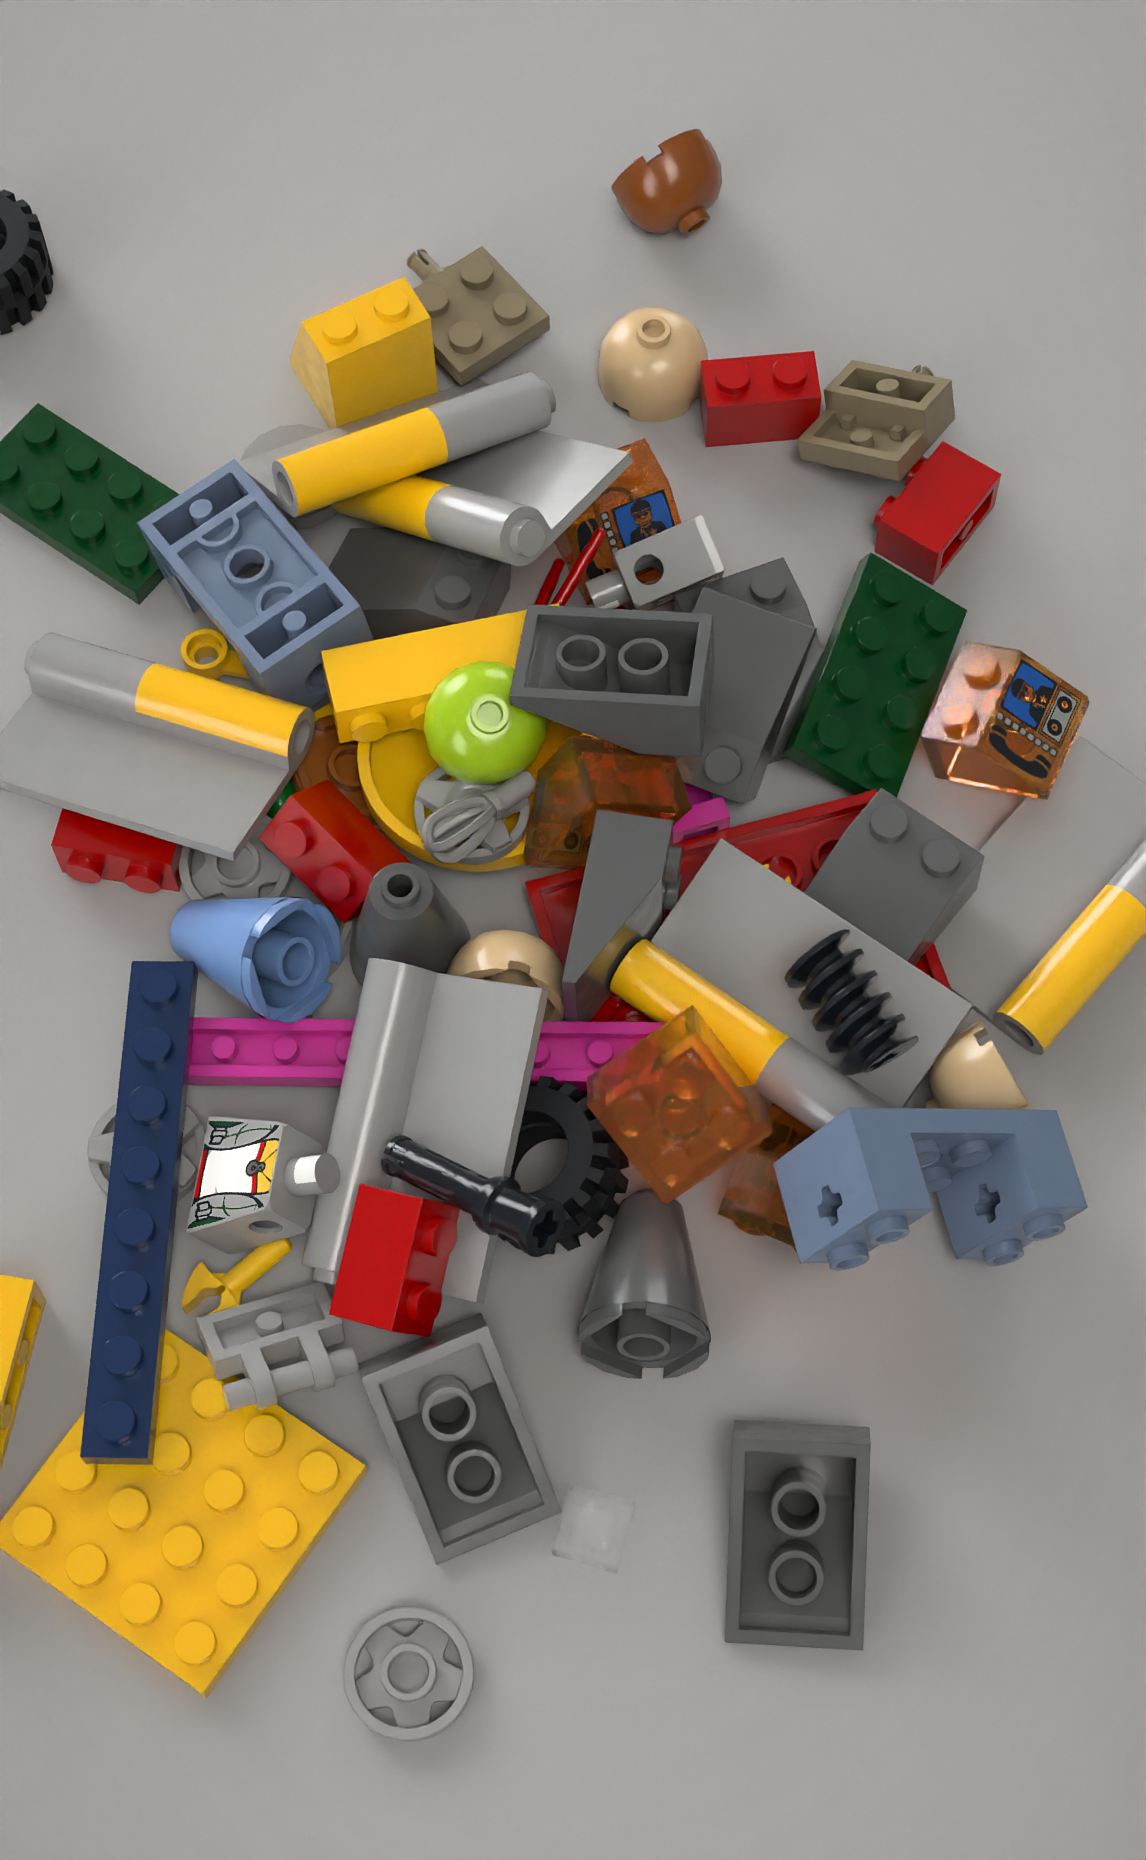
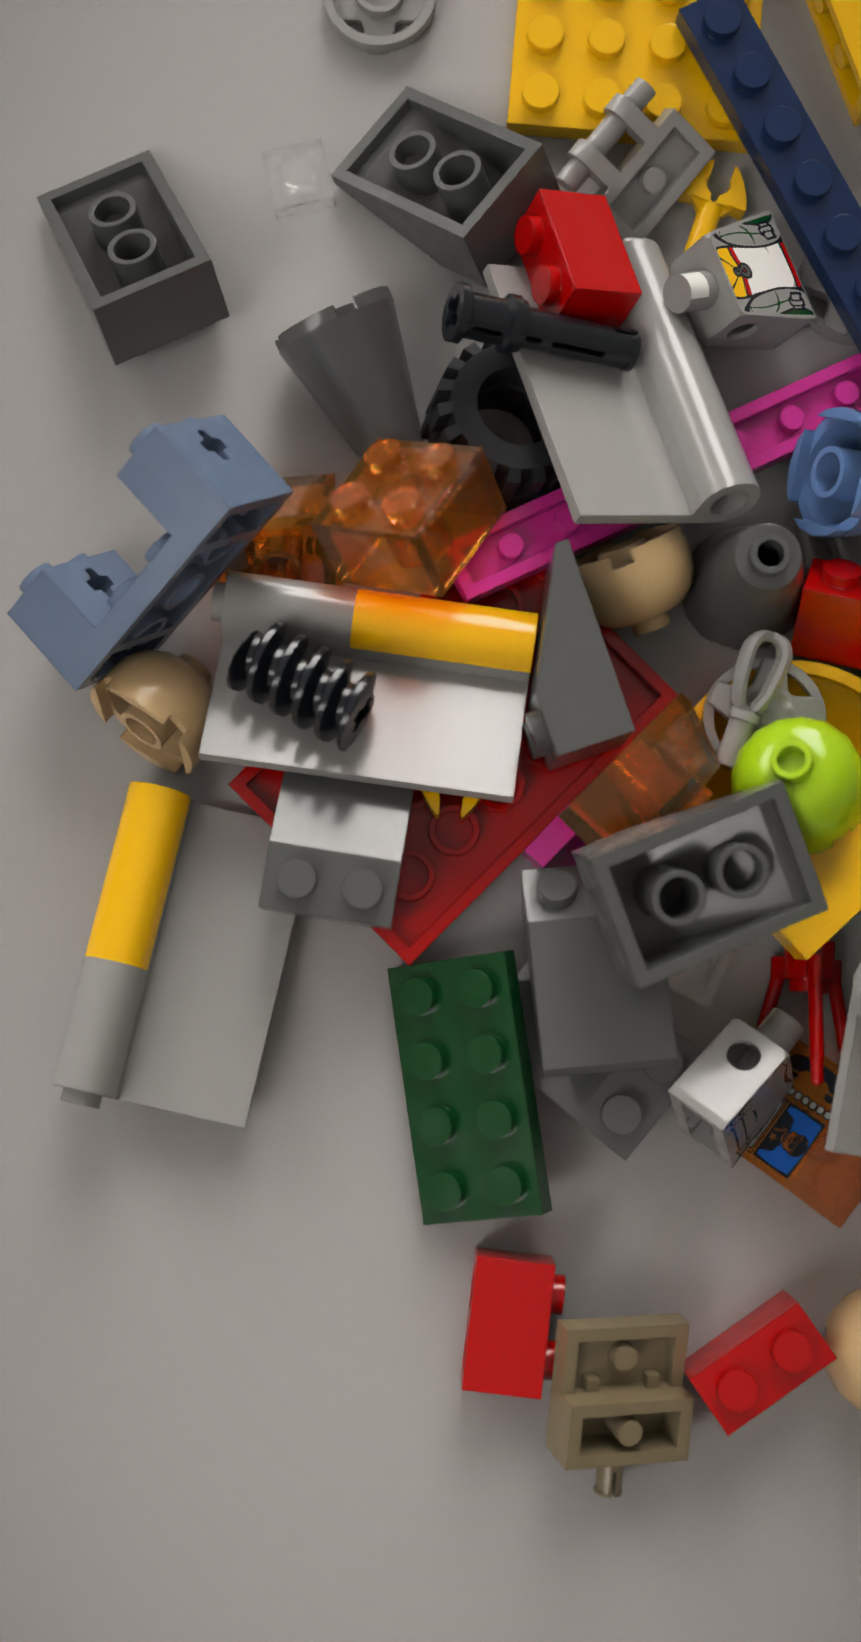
camera: 150 degrees right, 20 degrees up
(1002, 722) = (322, 1102): clear orange slope -> none

